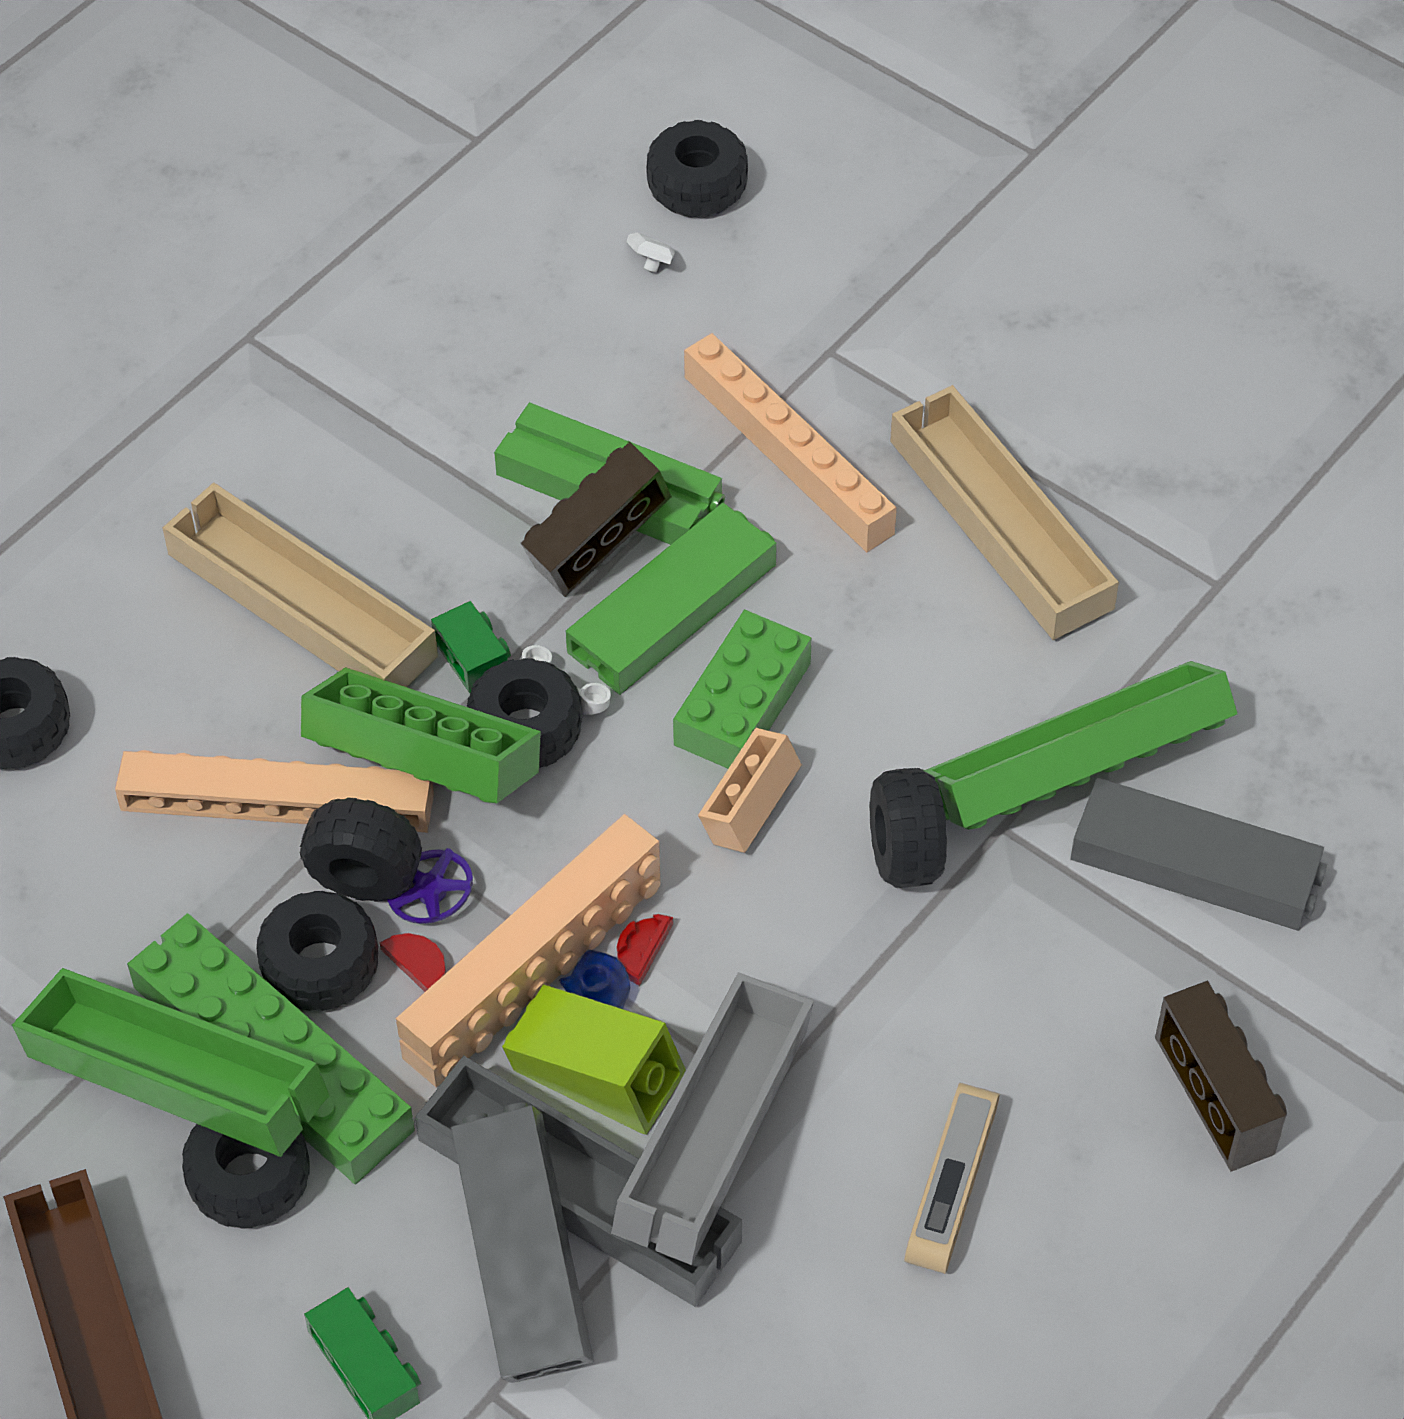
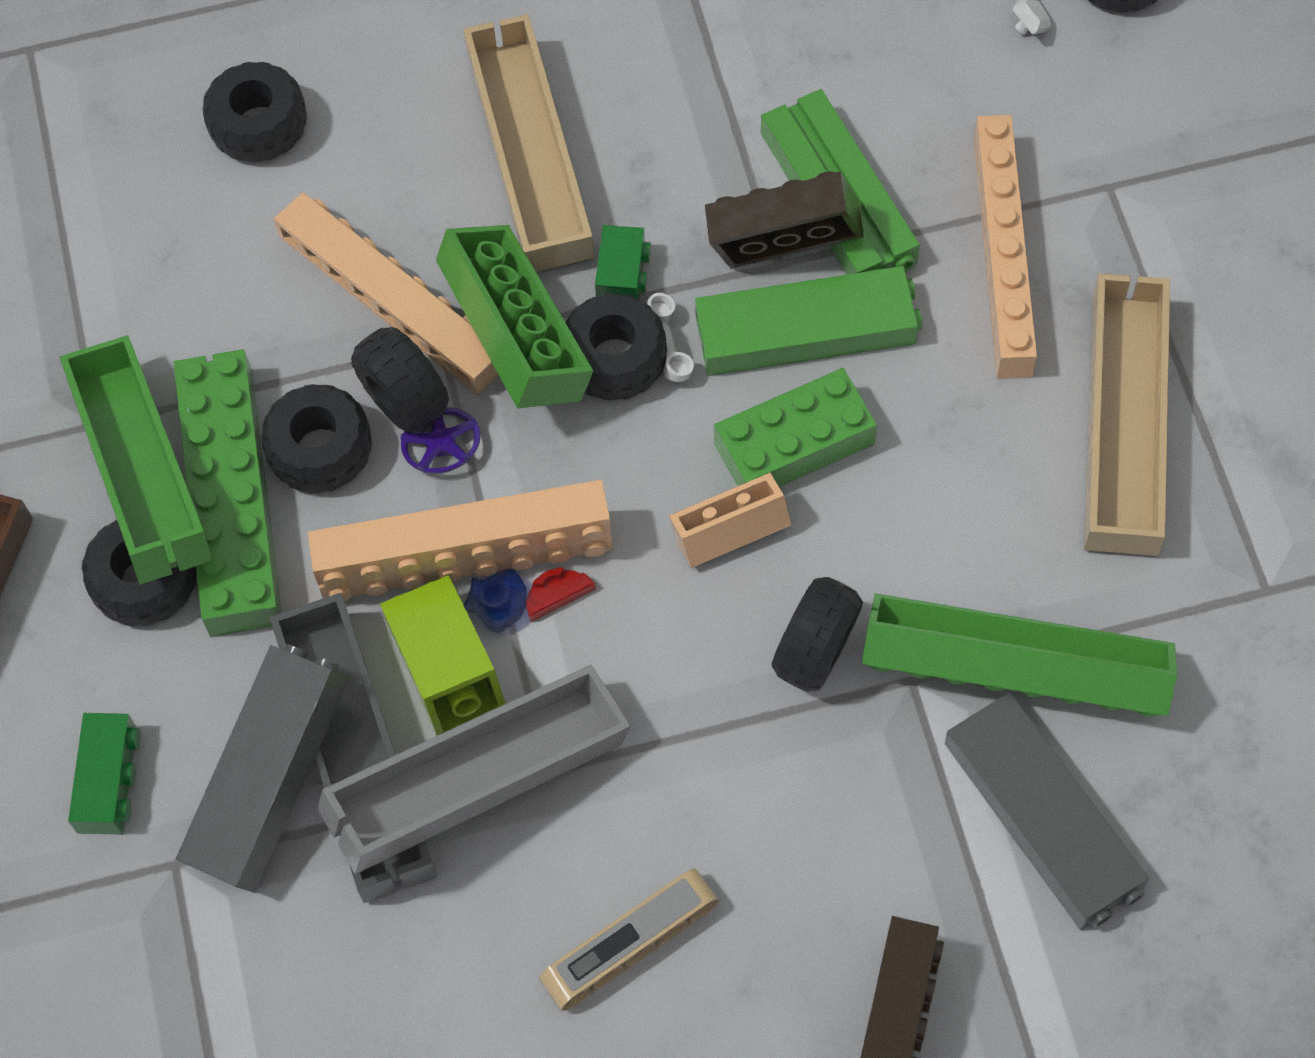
camera: 40 degrees right, 10 degrees up
(416, 958) = (387, 490): red tile -> none

